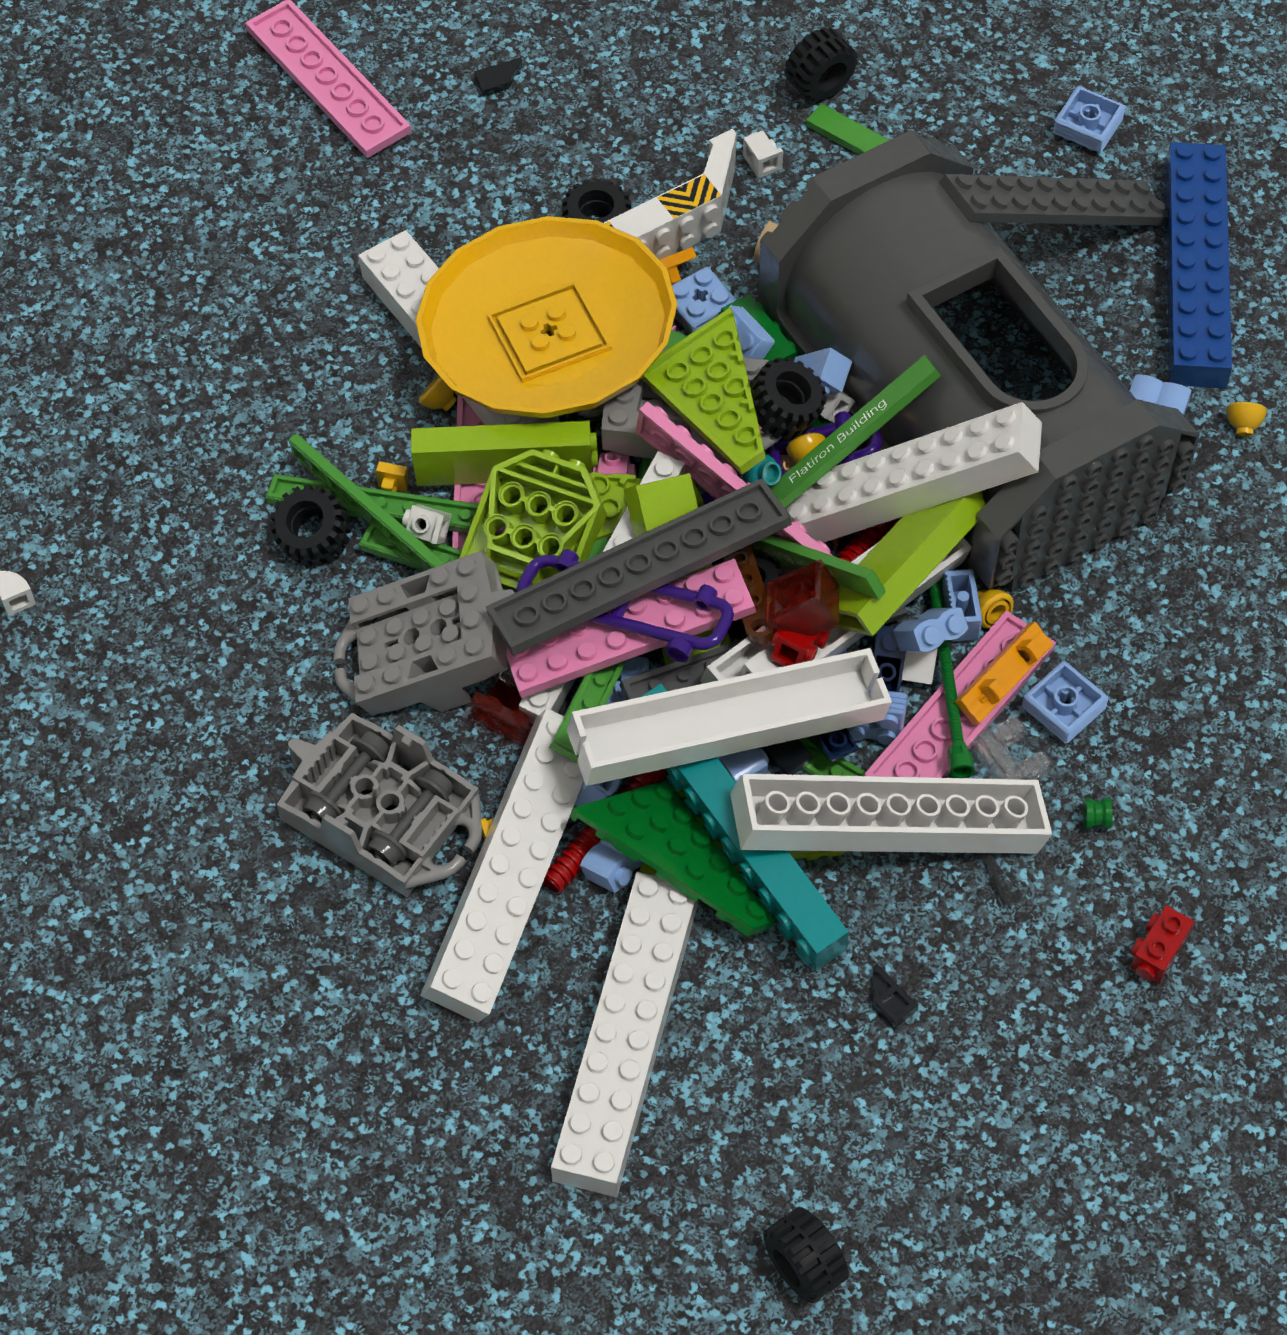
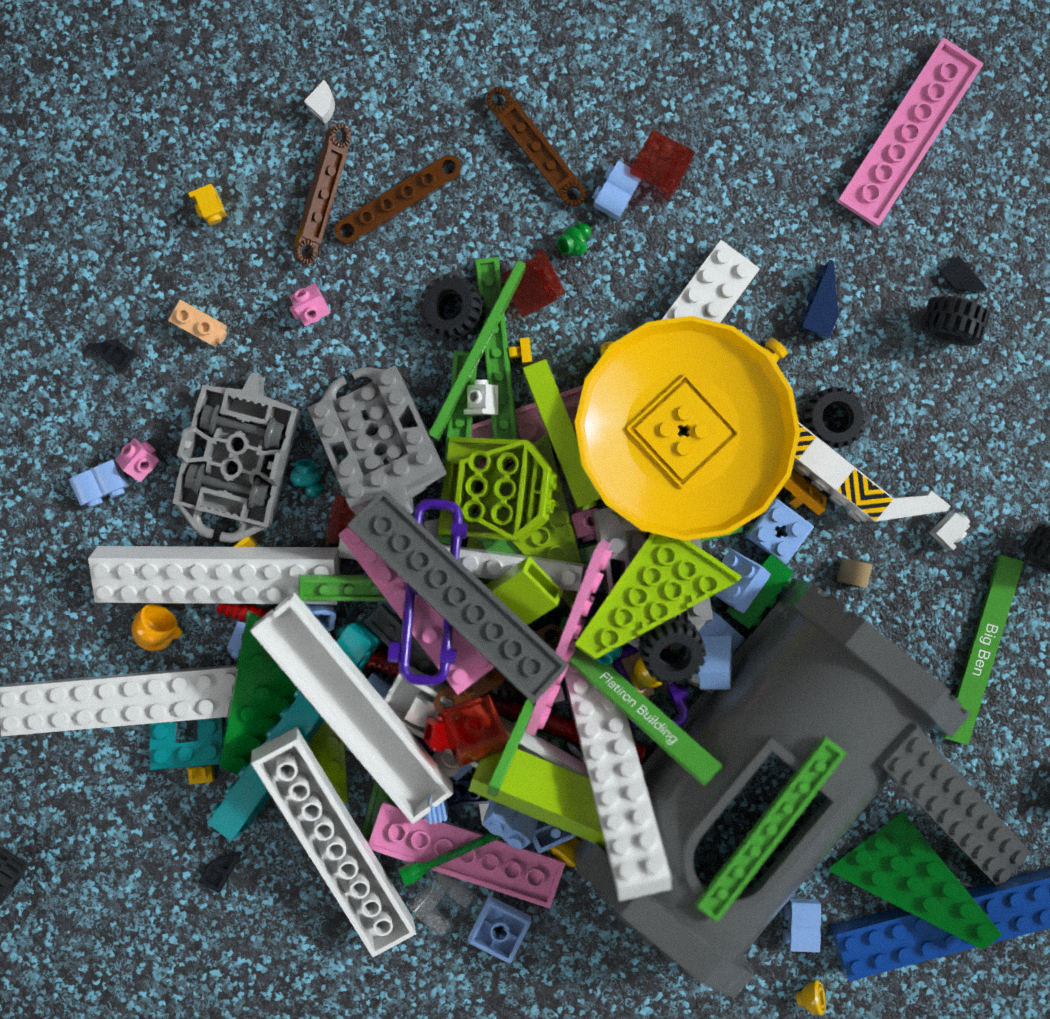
camera: 70 degrees right, 30 degrees up
(66, 744) = (208, 204): none -> yellow brick
(114, 623) = (322, 193): none -> reddish brown plate
(160, 555) = (398, 199): none -> reddish brown plate
(170, 402) = (535, 147): none -> reddish brown plate
(190, 912) = (114, 353): none -> black tile
(200, 800) = (198, 323): none -> light nougat brick
(236, 671) = (308, 305): none -> bright pink brick
(251, 285) = (662, 163): none -> clear red bracket
(257, 341) = (616, 191): none -> light blue brick
(292, 395) = (574, 240): none -> green animal
(328, 434) = (538, 285): none -> clear red bracket
(333, 916) = (137, 459): none -> bright pink brick
(342, 974) = (99, 483): none -> light blue brick
(439, 737) = (307, 475): none -> teal animal
(473, 196) = (822, 309): none -> dark blue slope
(540, 83) = (955, 320): none -> black tyre
(552, 968) = (155, 627): none -> light orange piece
(717, 1004) = (171, 755): none -> teal plate
(752, 979) = (200, 774): none -> yellow tile
(1003, 673) = (502, 882): light orange hinge -> none
(1007, 319) = (770, 829): none -> bright green tile
(1097, 813) = (414, 978): green wheel -> none
(1124, 285) = (910, 875): none -> green wing

